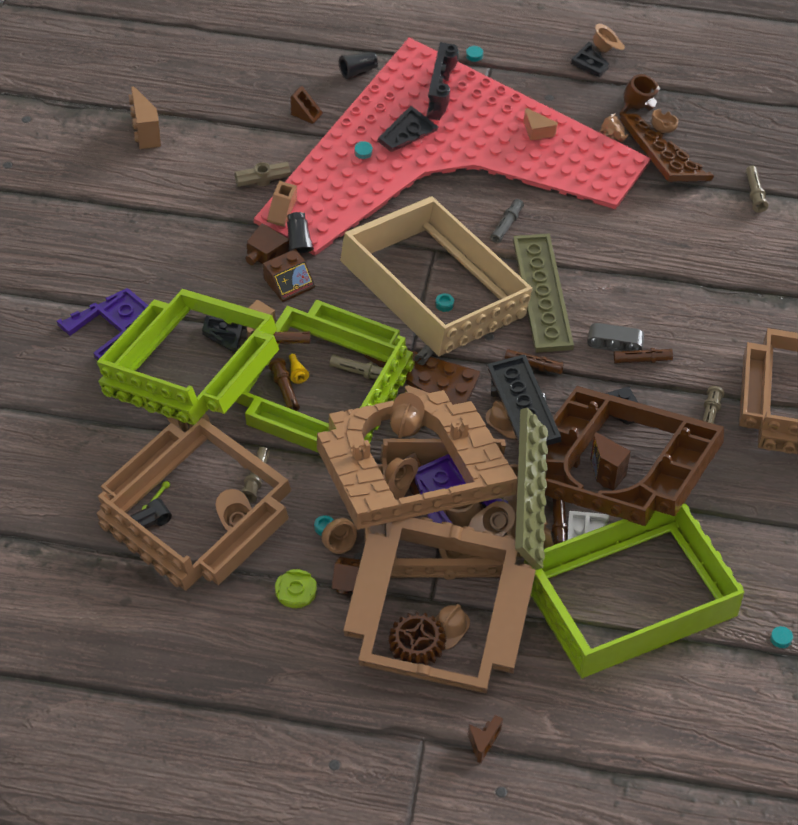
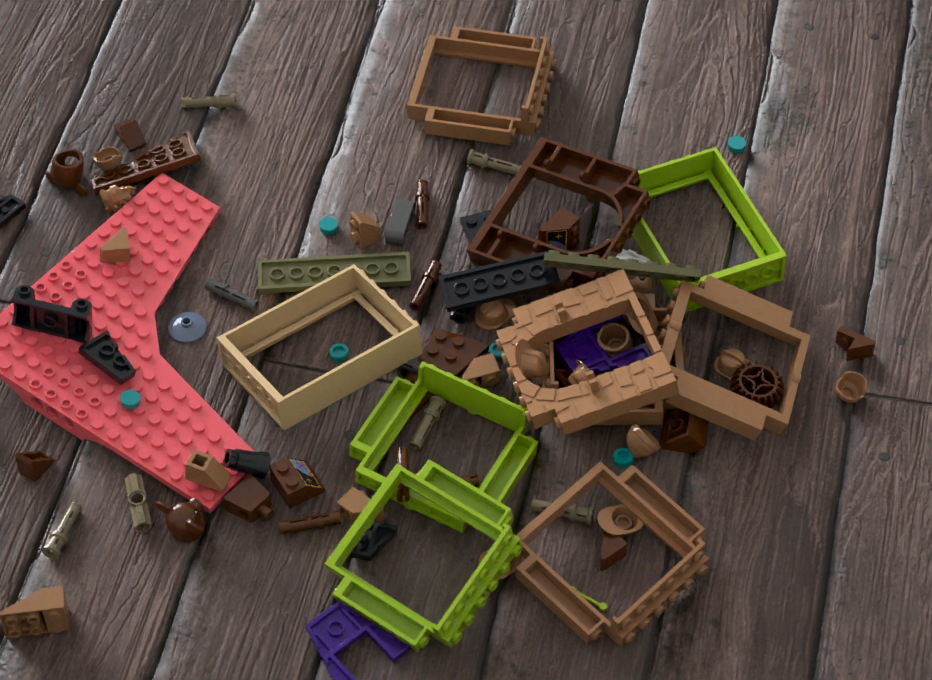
camera: 85 degrees left, 0 degrees up
(154, 513) = (615, 595): black piece -> none
(204, 511) = (613, 550): none -> reddish brown slope
(227, 130) = (59, 536): none -> dark tan pin
(237, 199) = (184, 519): none -> reddish brown piece
(244, 294) = (305, 523): none -> reddish brown pin
(295, 588) = (697, 481): lime tile -> none
(419, 728) = (851, 387): none -> medium nougat hair
(468, 196) = (187, 327): none -> sand blue dish
(596, 305) = (363, 229): none -> medium nougat slope
(606, 286) = (328, 225): none -> teal tile
(701, 136) = (130, 134): none -> reddish brown slope

